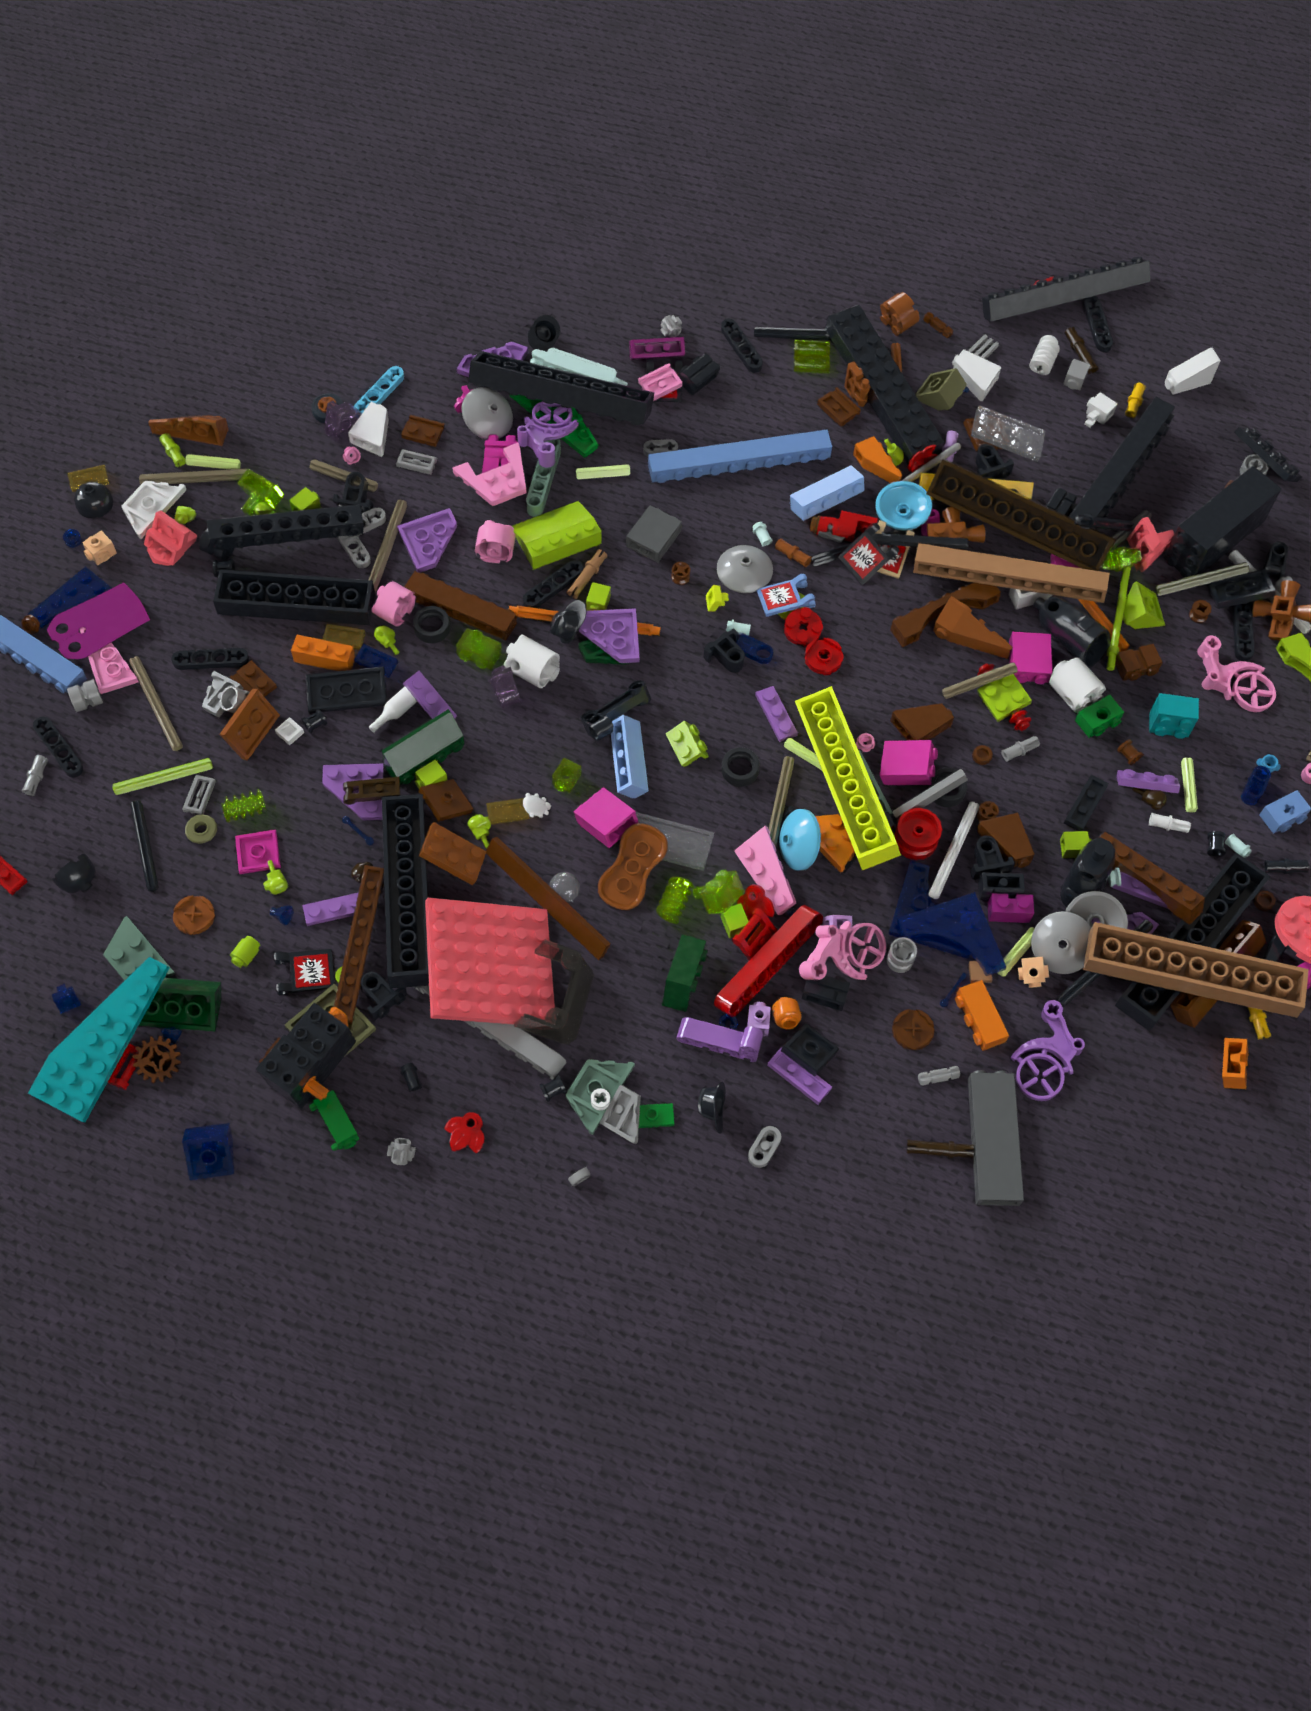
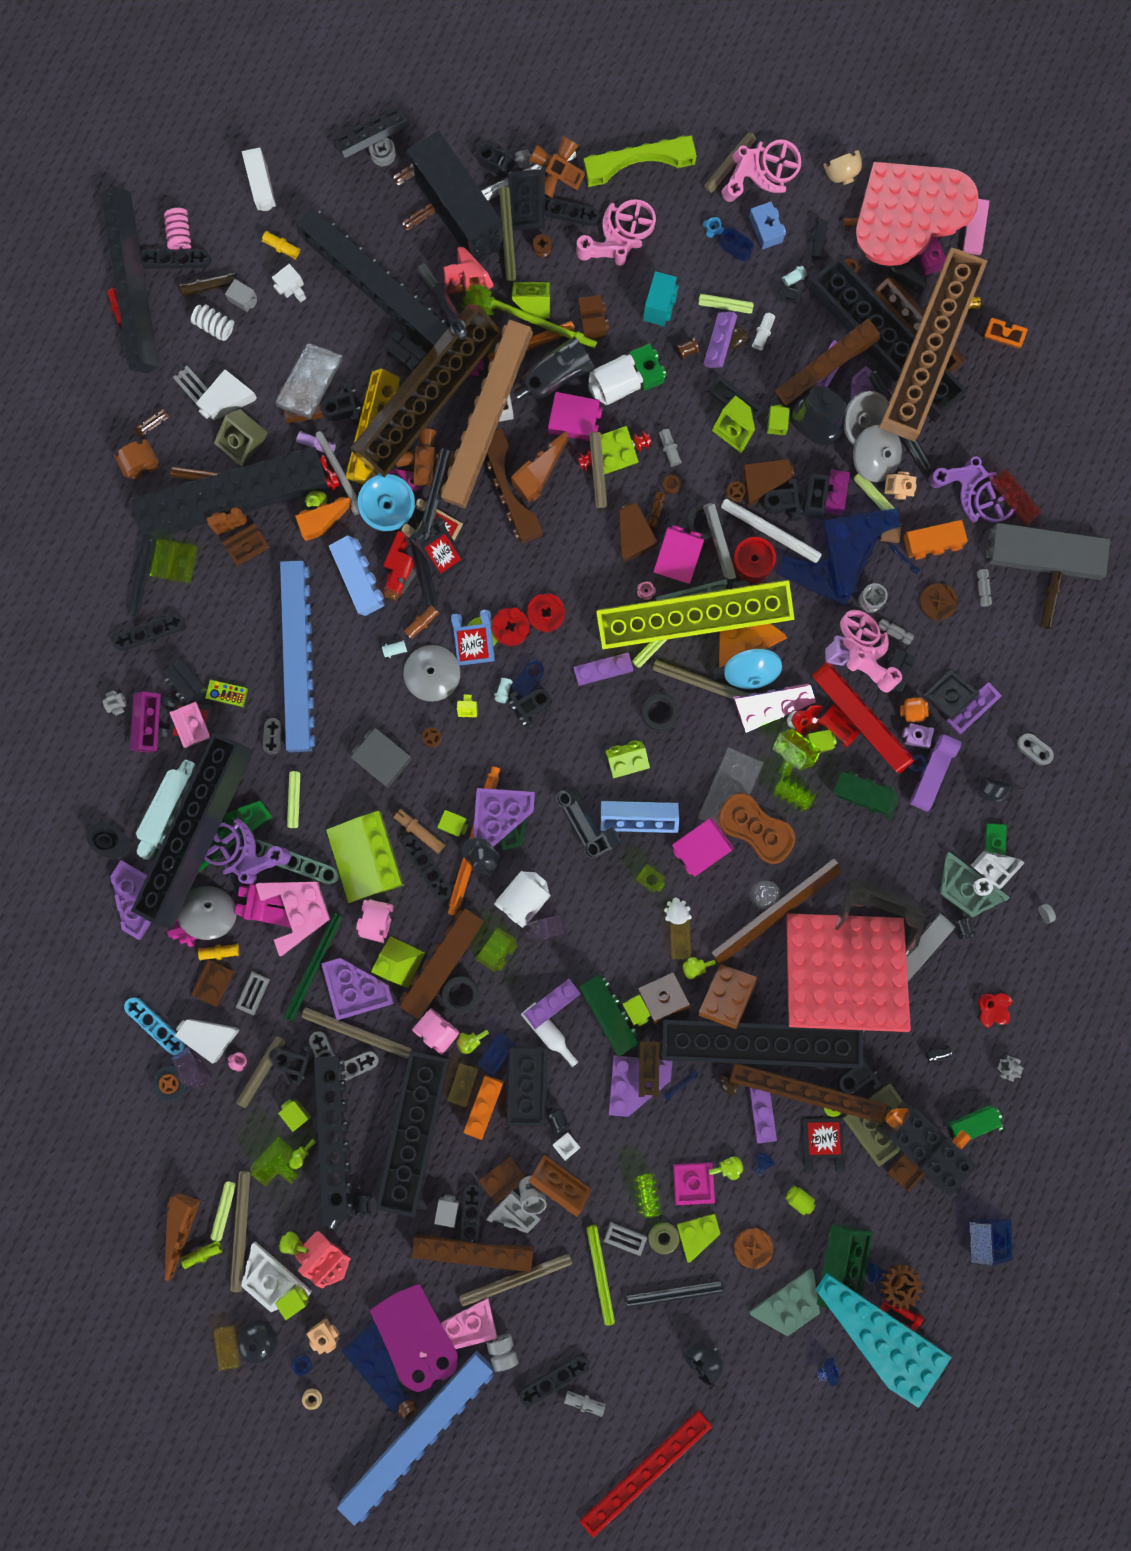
camera: 80 degrees left, 20 degrees up
(40, 544) = (307, 1403): none -> tan plate
(130, 516) = (292, 1302): none -> lime brick
(178, 676) = (487, 1255): none -> reddish brown arch
(205, 860) = (698, 1234): none -> lime wing
(220, 635) = (447, 1211): none -> light grey brick
(444, 504) = (313, 966): none -> dark green axle
(452, 430) = (218, 952): none -> yellow pin
(458, 567) = (398, 962): none -> lime slope
(695, 409) = (226, 693): none -> tile
(870, 987) = (895, 631): none -> light grey axle
(952, 743) = (656, 509): none -> reddish brown axle
(1042, 1104) = (1008, 487): none -> clear red tile
(1061, 799) = (735, 424): none -> lime slope
(1124, 318) = (177, 229): none -> bright pink piece
(1194, 504) = (418, 216): none -> reddish brown axle

